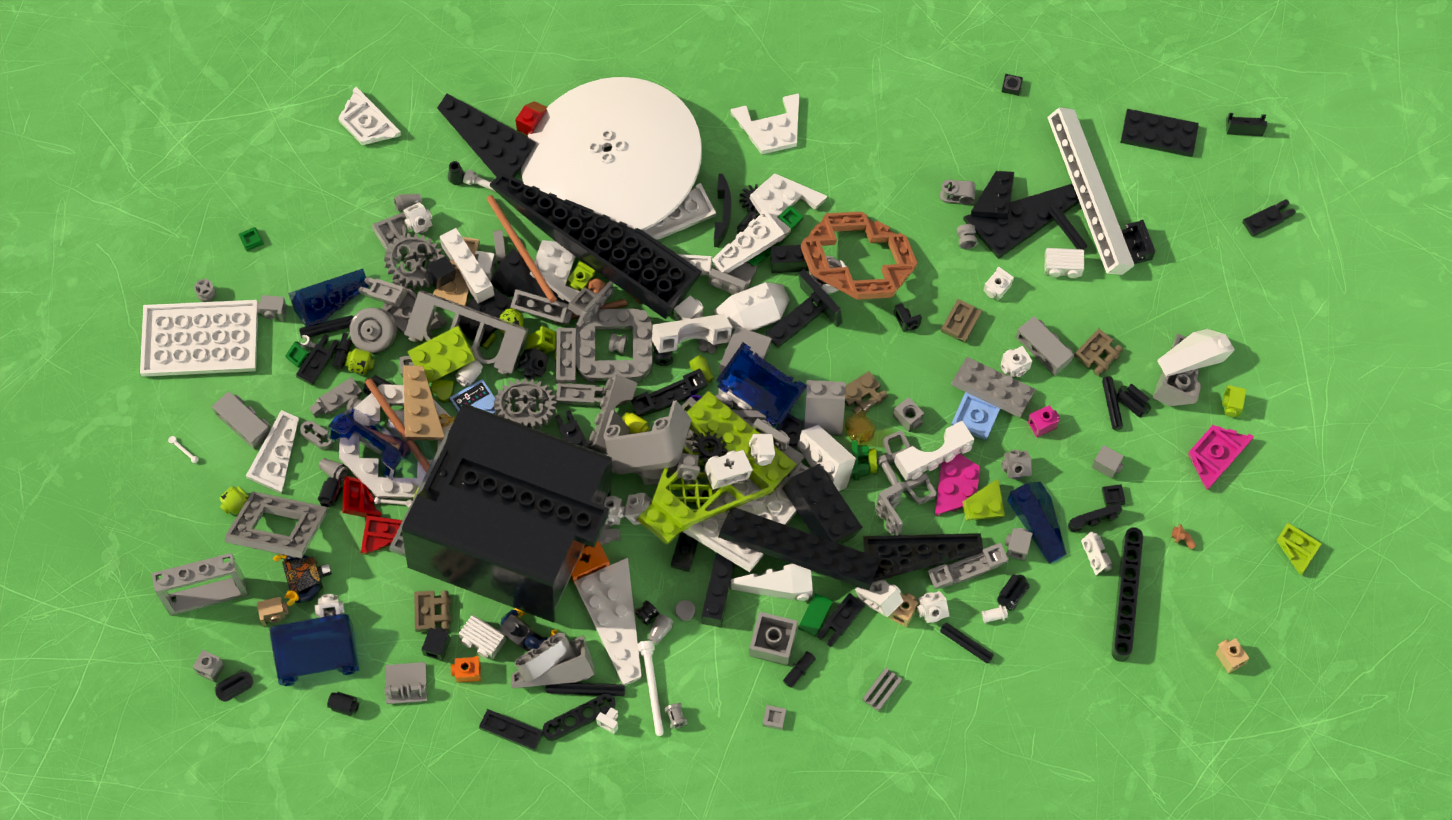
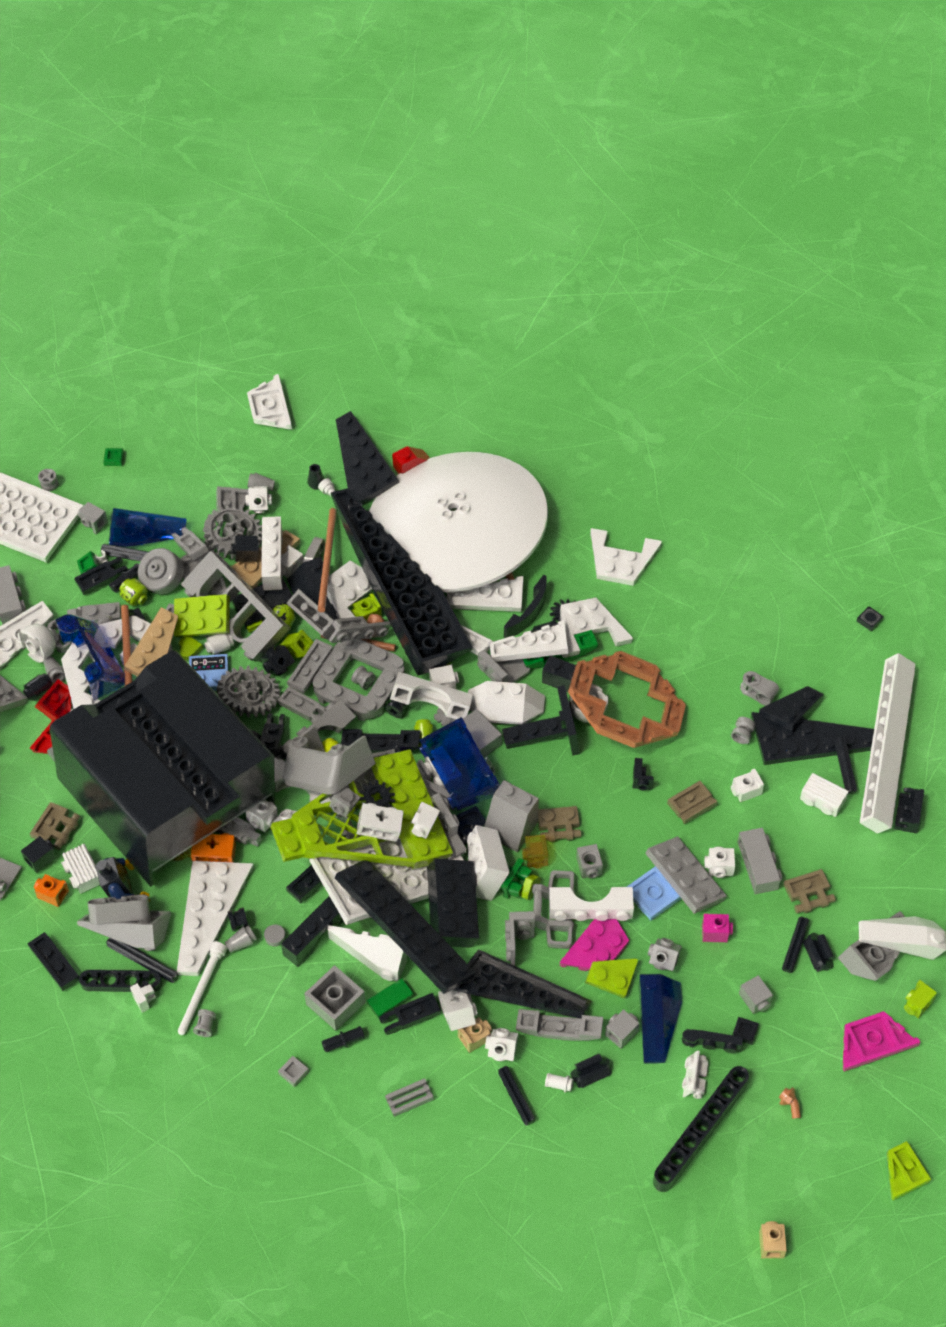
camera: 30 degrees right, 10 degrees down
(305, 451) = (38, 641): none -> white cylinder

